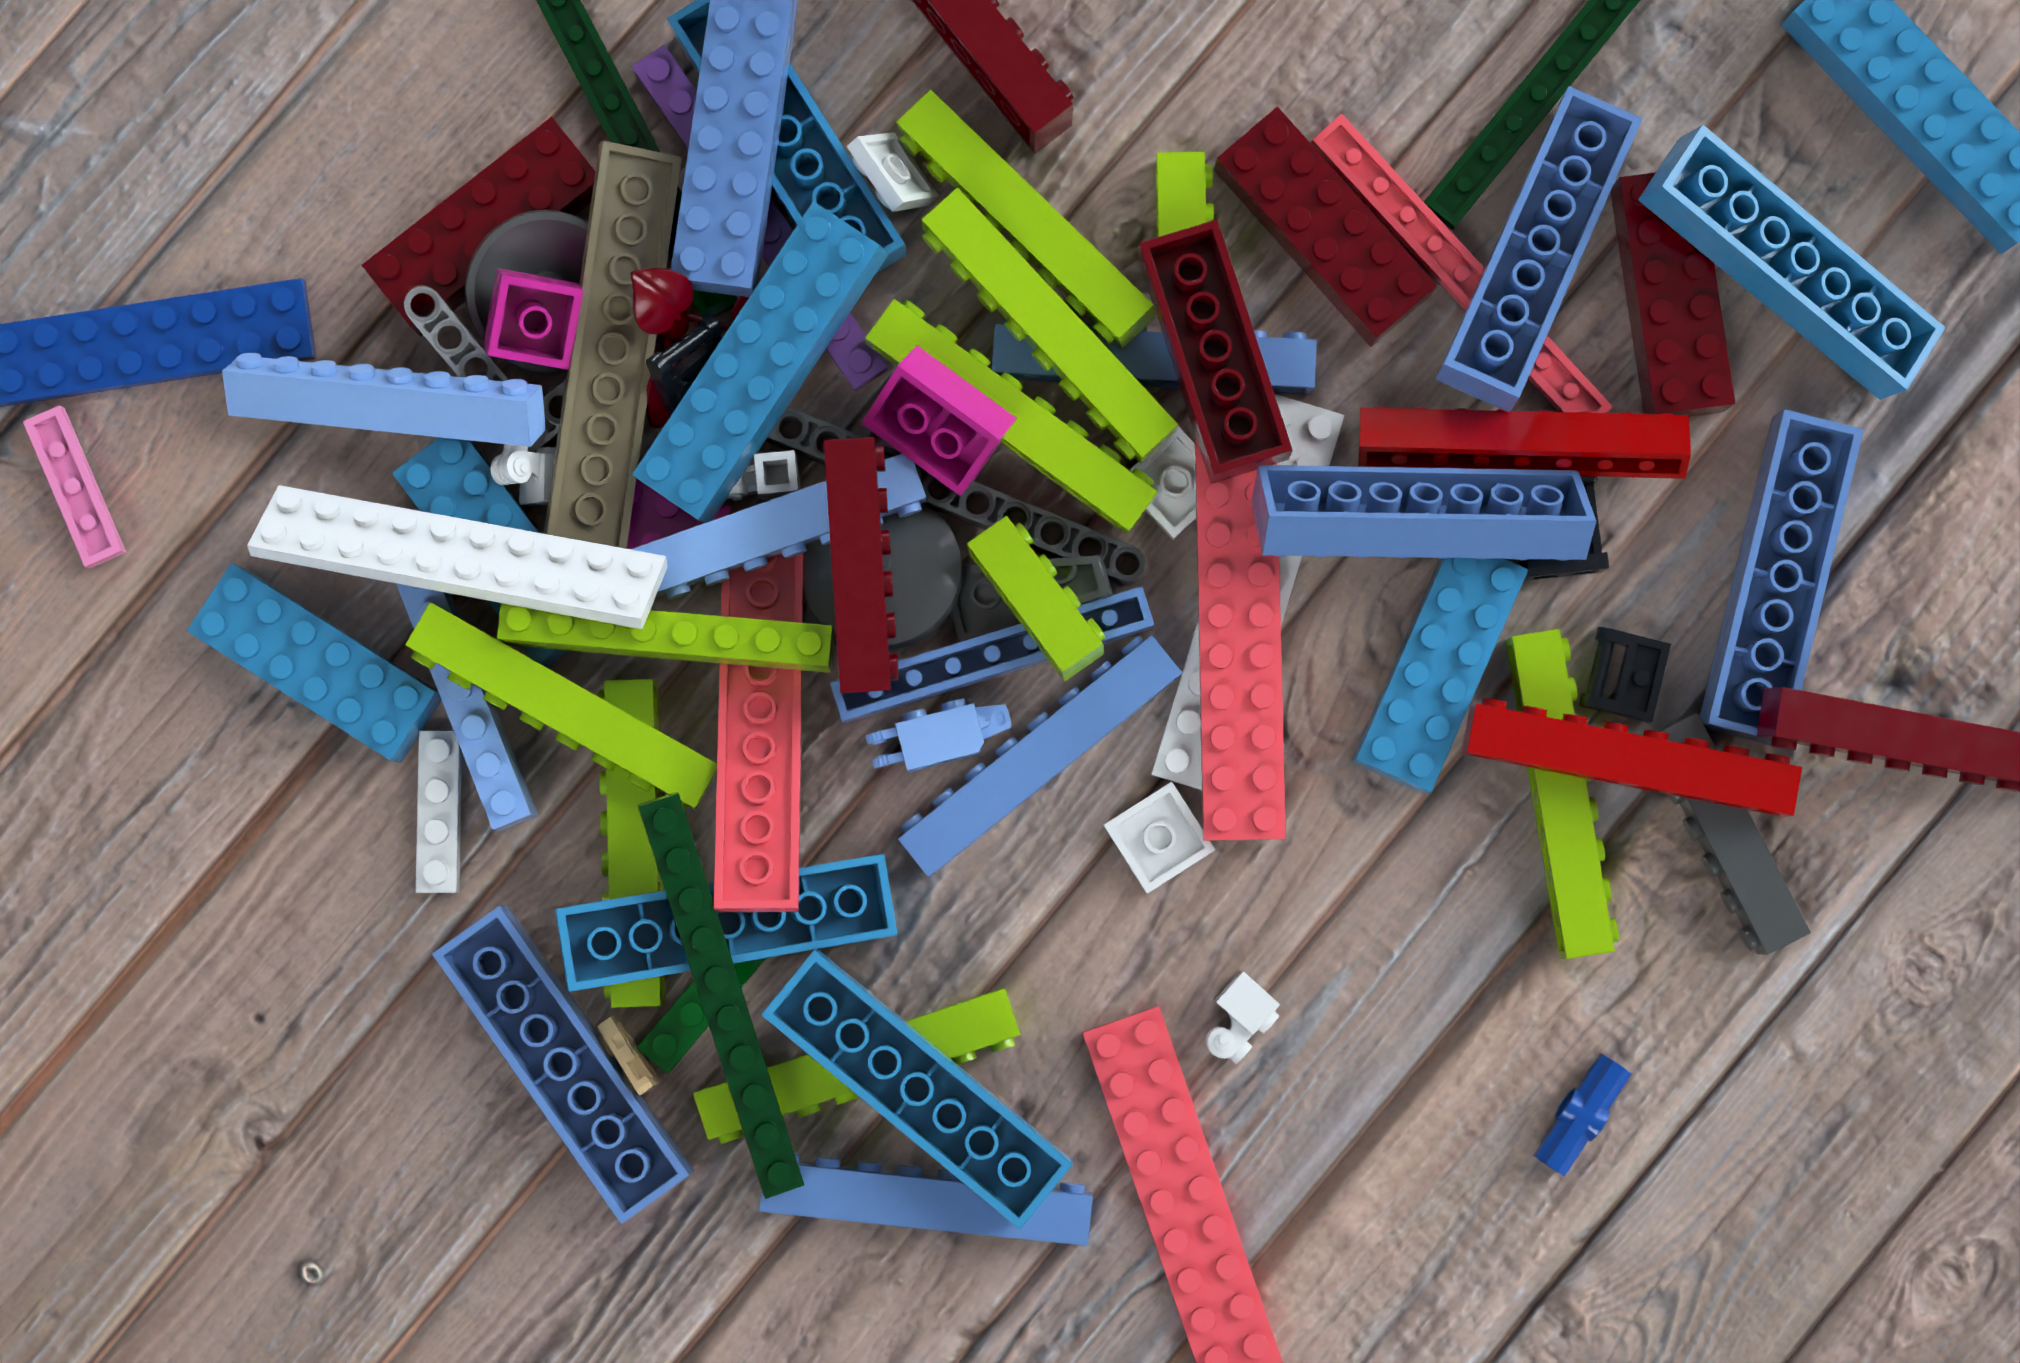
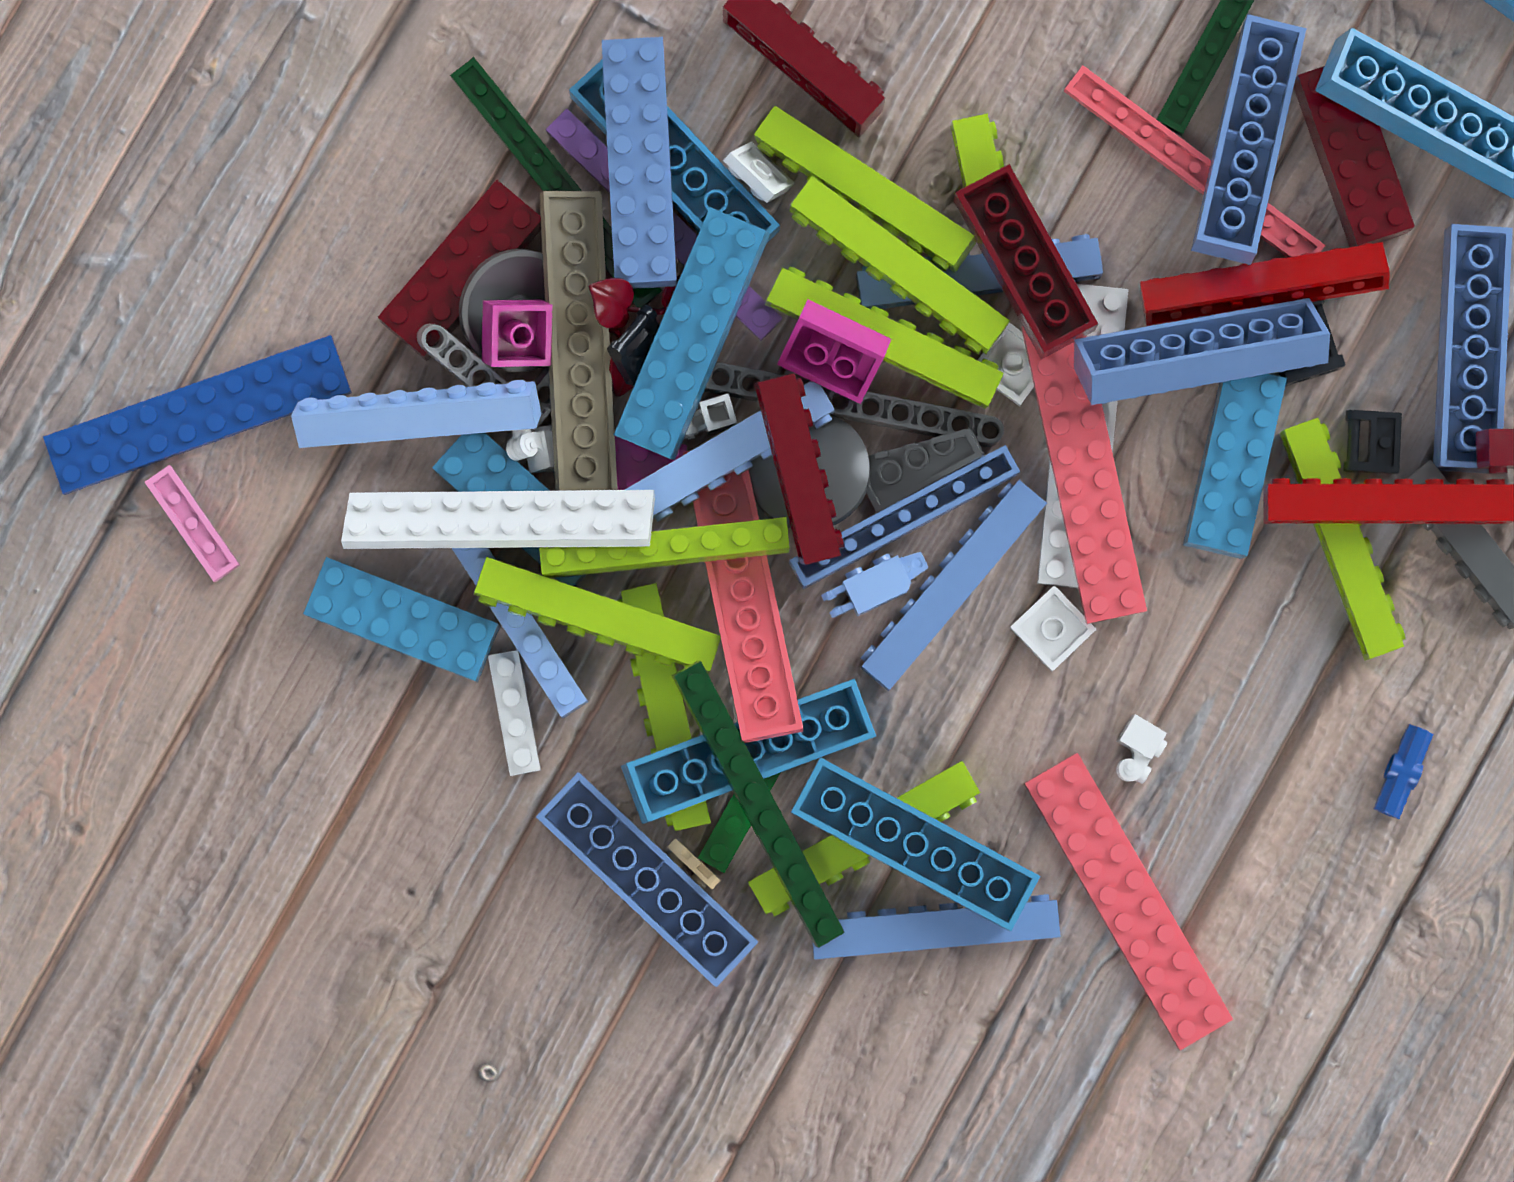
camera: 20 degrees left, 0 degrees up
(1036, 598) = (930, 468): lime brick -> none
(1324, 226) = (1086, 152): dark red brick -> none

